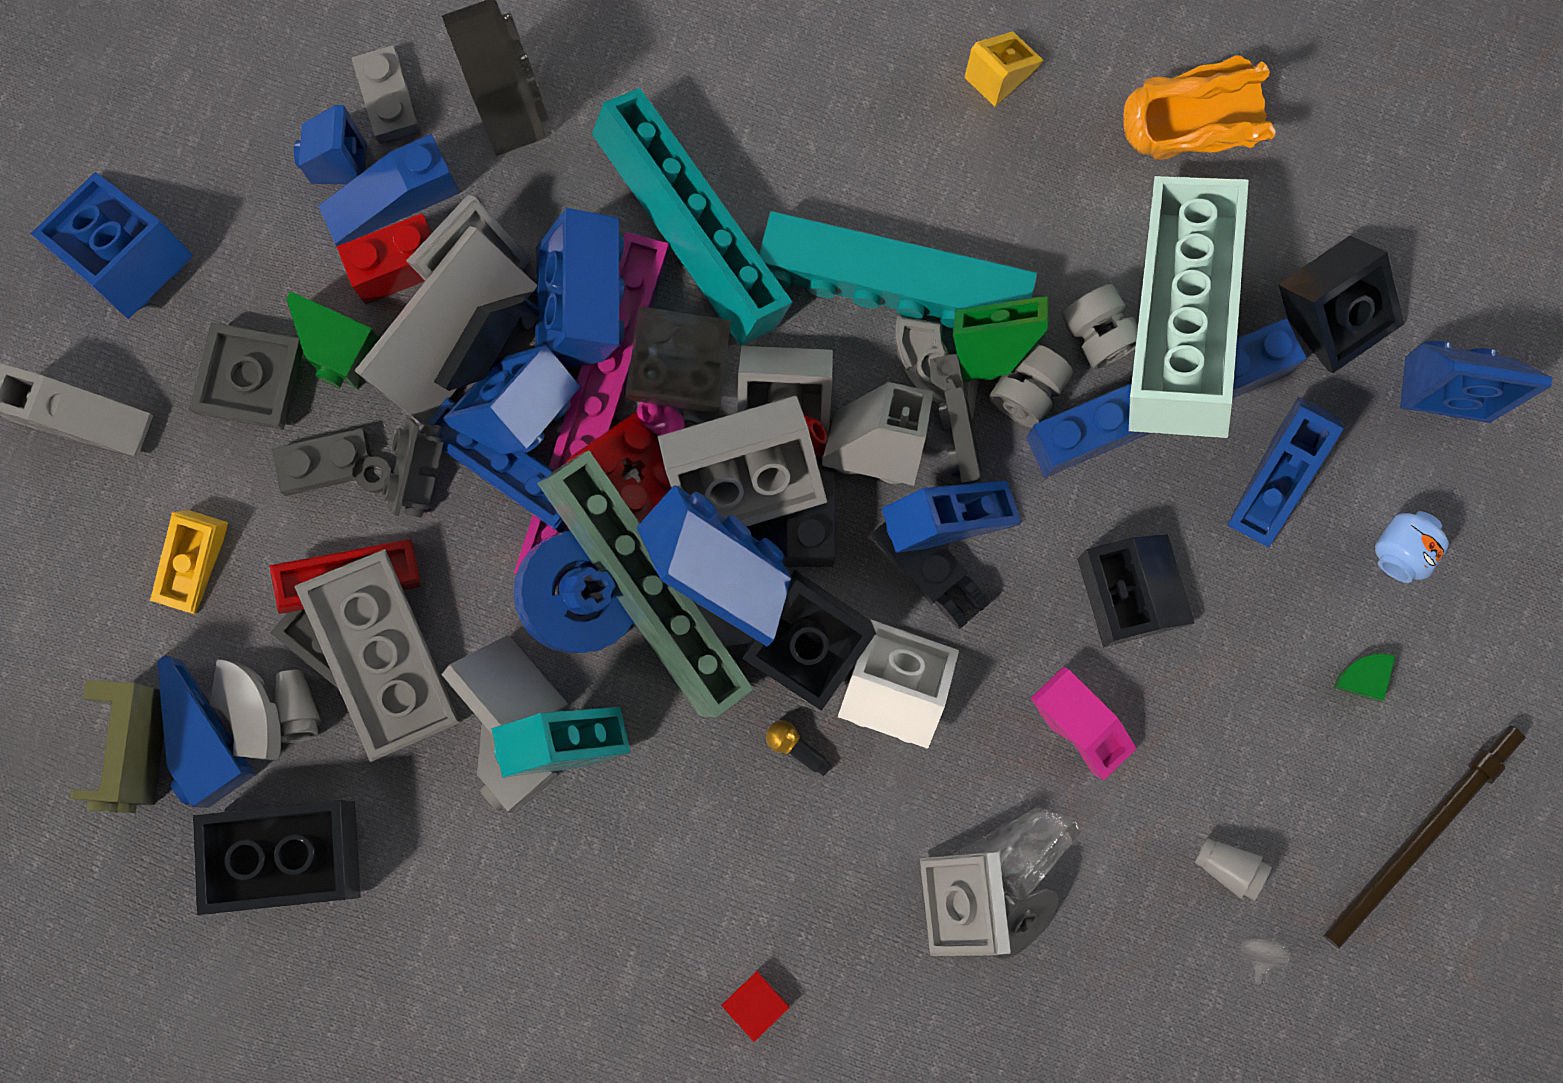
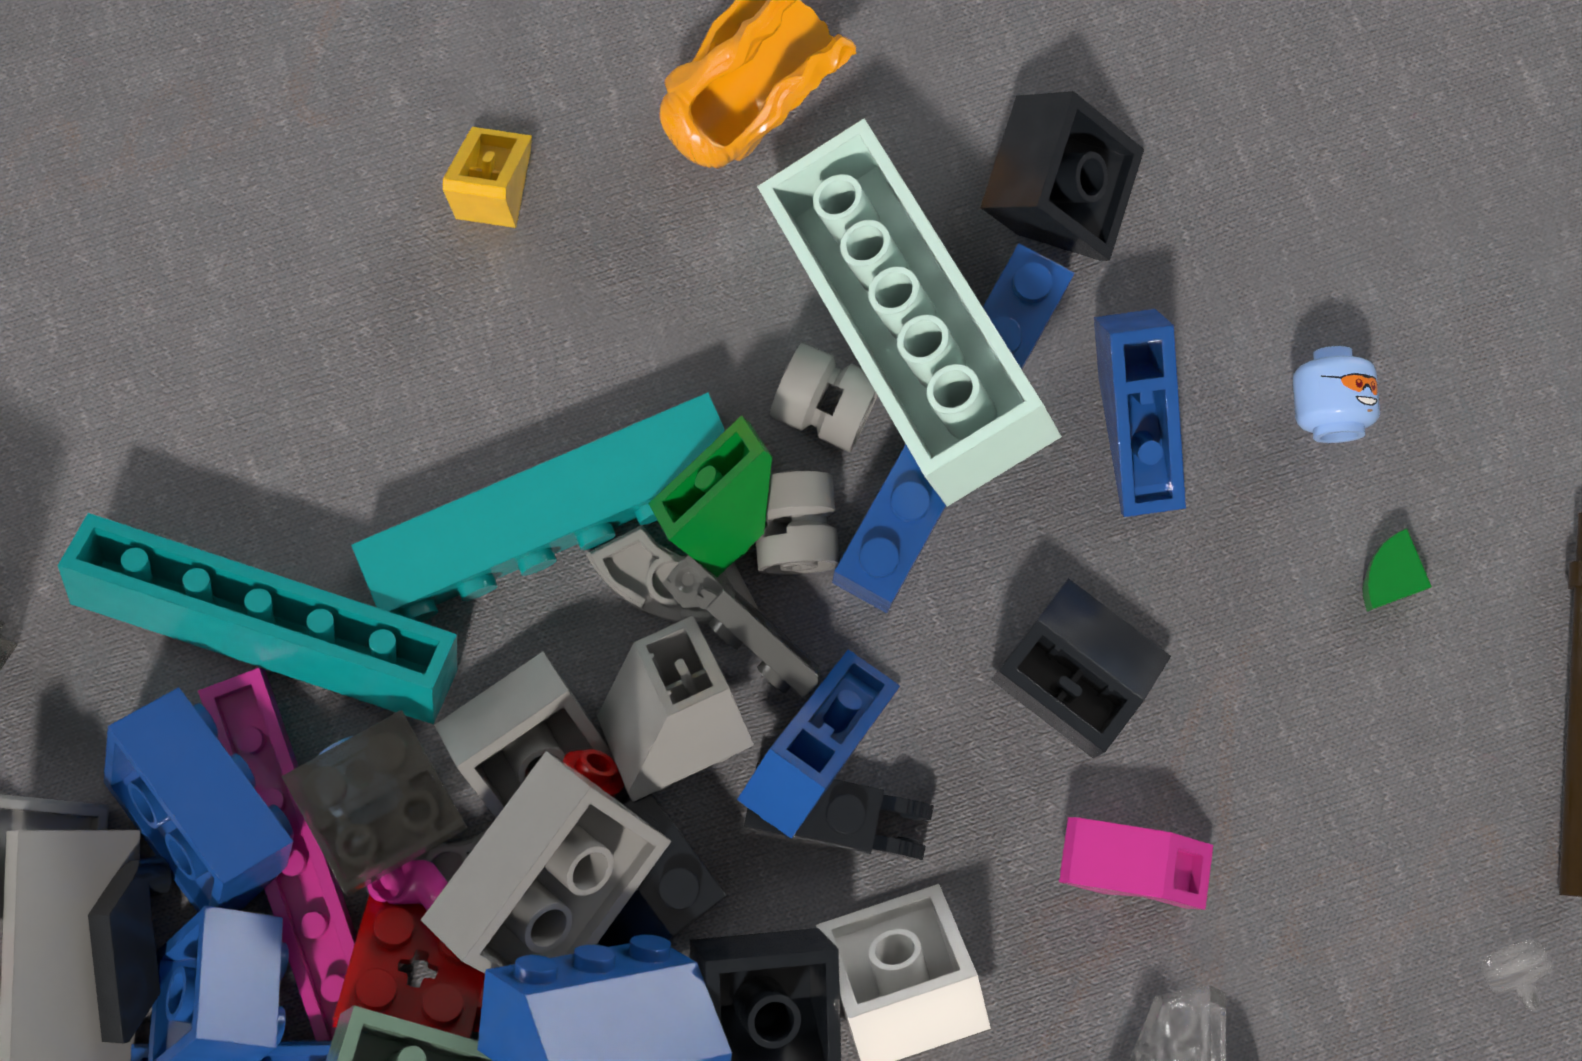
camera: 40 degrees left, 0 degrees up
(1234, 868) = (1414, 898): light grey cone -> none
(1467, 383) = (1260, 167): blue slope -> none

